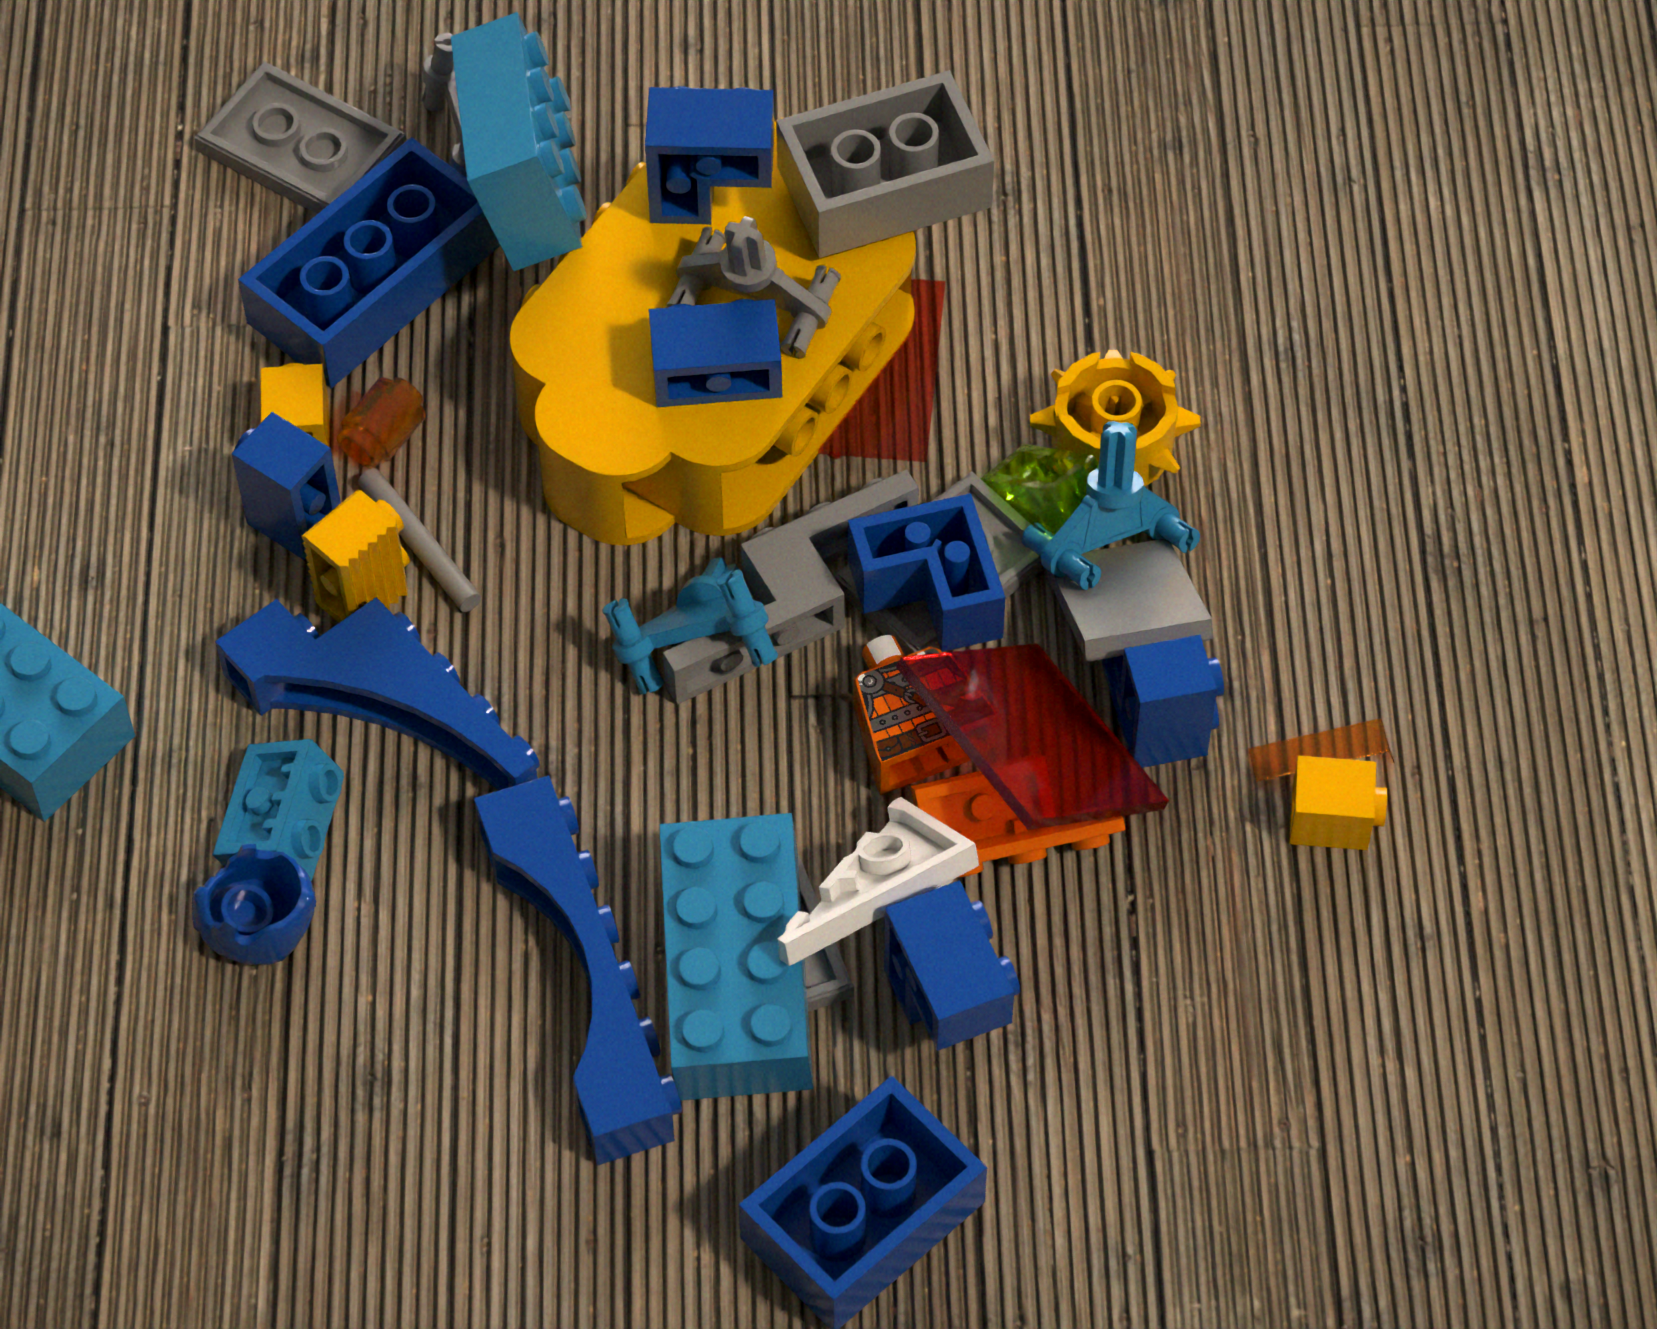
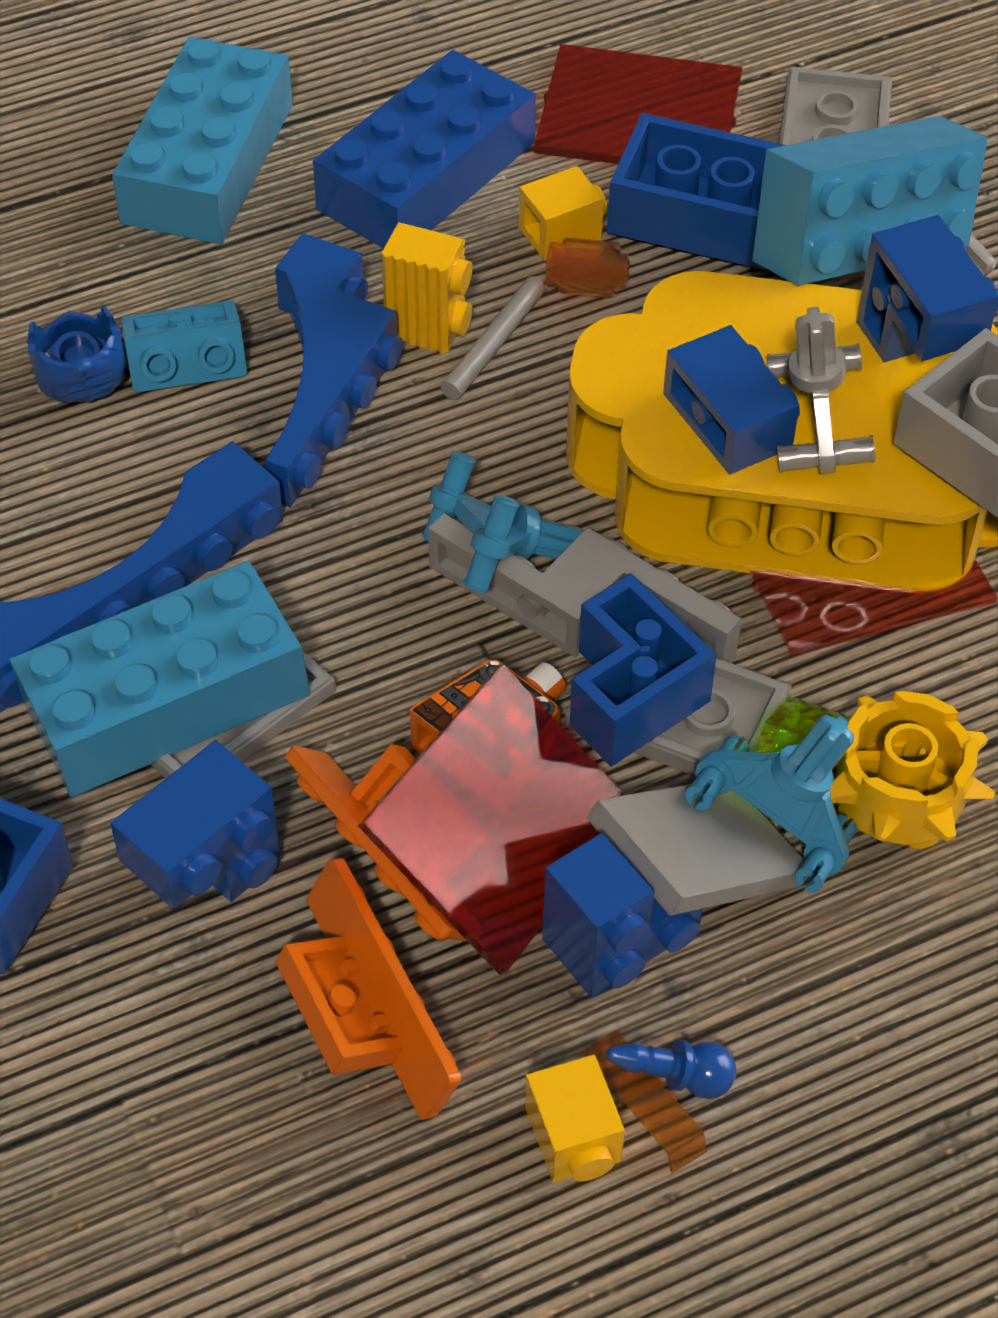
camera: 65 degrees right, 5 degrees down
(139, 495) = (425, 149): none -> blue brick
(156, 293) = (601, 94): none -> clear red piece
(284, 481) = (475, 209): blue brick -> none
(887, 867) = (276, 745): white wing -> none
(1144, 913) = (361, 997): none -> orange bracket
(1313, 704) = (702, 1069): none -> blue bar

